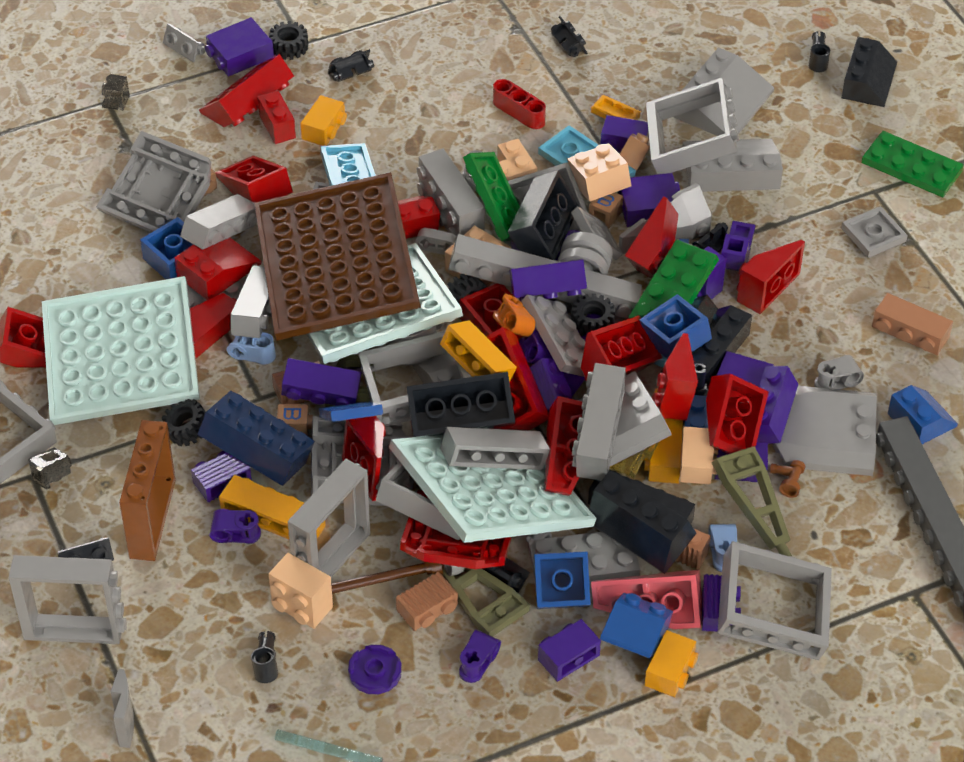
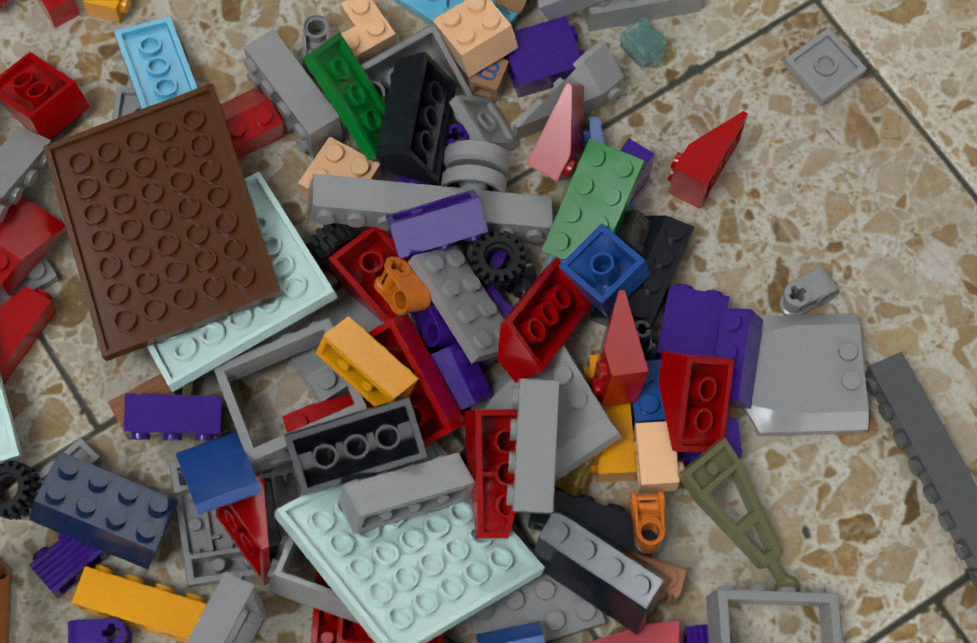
camera: 10 degrees left, 20 degrees up
(252, 306) = (66, 308): brick -> none
(253, 349) = (69, 356): light blue piece -> none
(296, 416) = (147, 465): medium nougat brick -> none
(436, 241) = (284, 158): light grey beam -> none
(684, 495) = (648, 514): none -> orange piece
(714, 238) = (625, 112): black hinge -> none
(720, 540) = (702, 567): light blue piece -> none
(731, 200) = (643, 43): none -> clear light blue brick
(738, 244) = (661, 118): dark purple arch -> none
(790, 486) = (770, 469): dark orange piece -> none
(912, 324) = (888, 203): nougat brick -> none
(923, 411) = (916, 335): blue slope -> none

